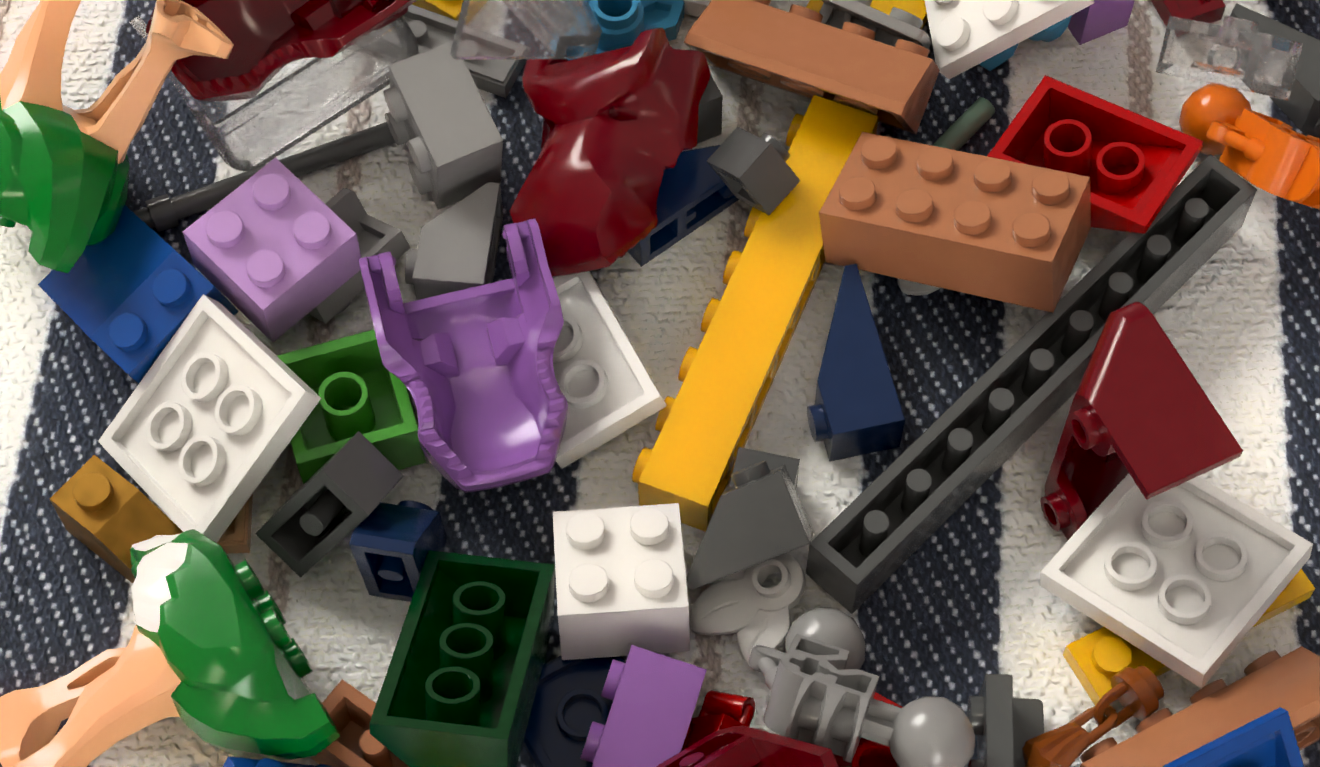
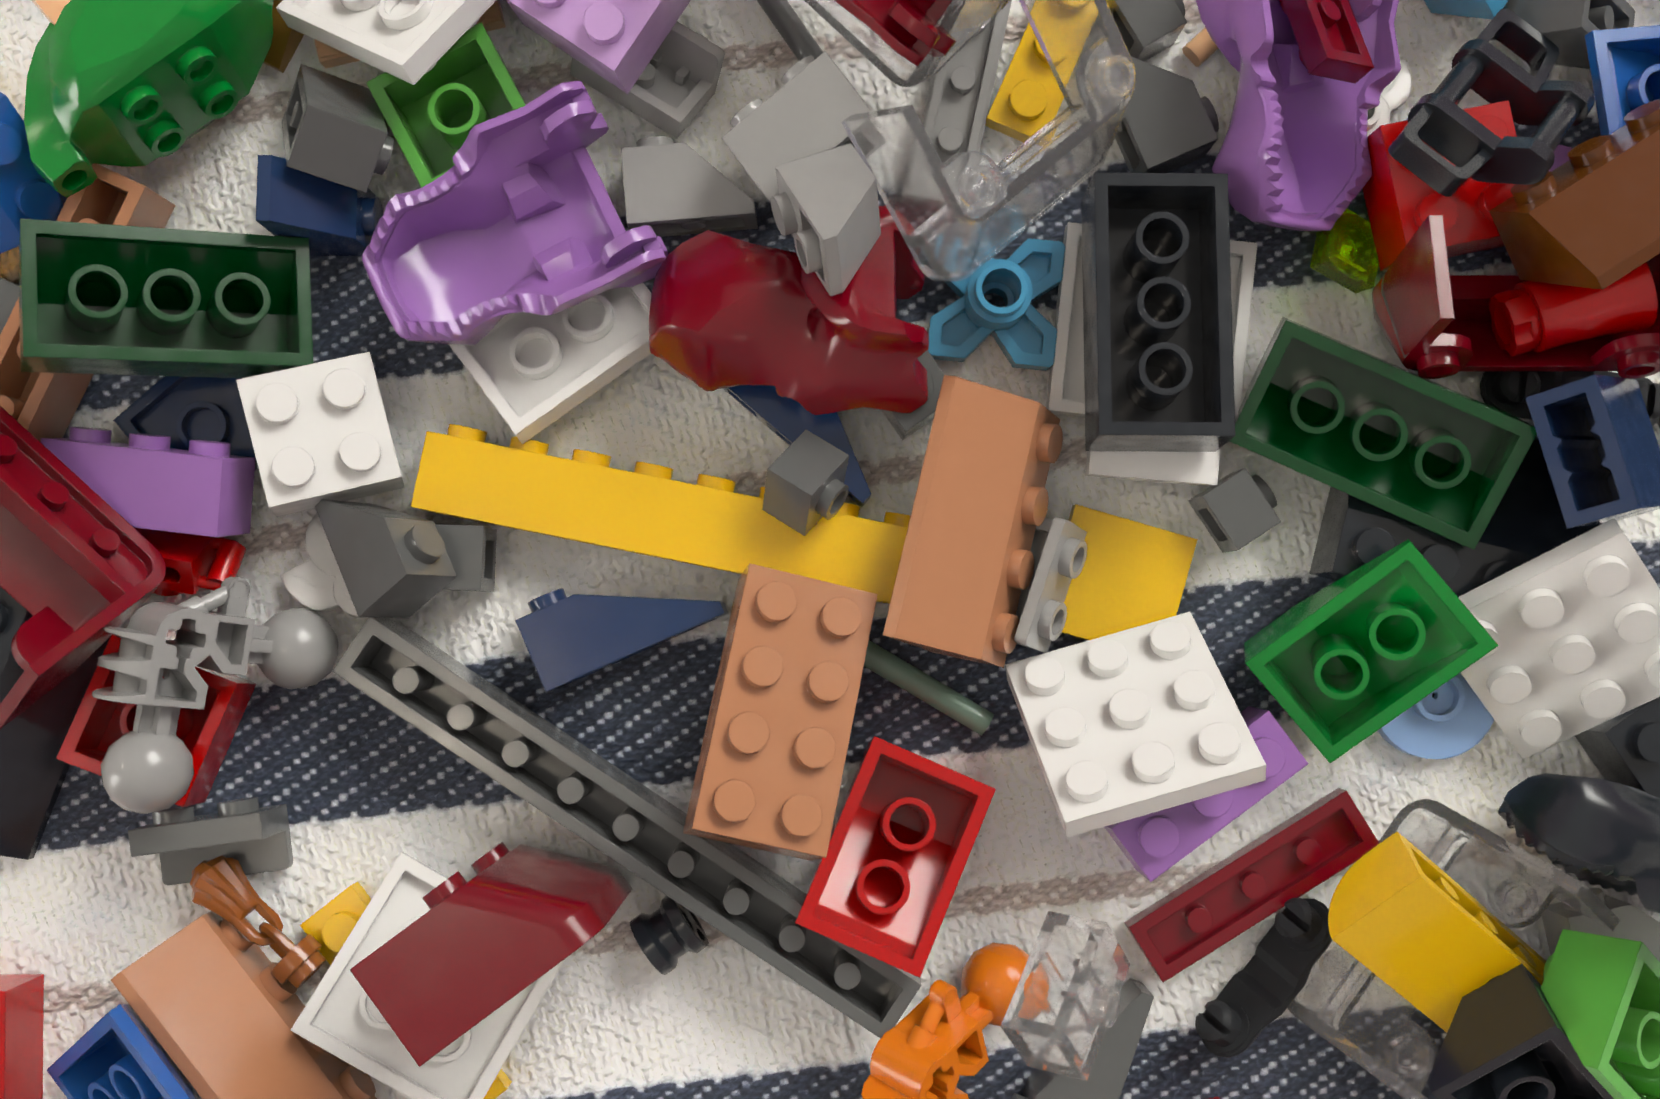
camera: 80 degrees right, 25 degrees up
(531, 83) = (830, 212): none -> light grey slope

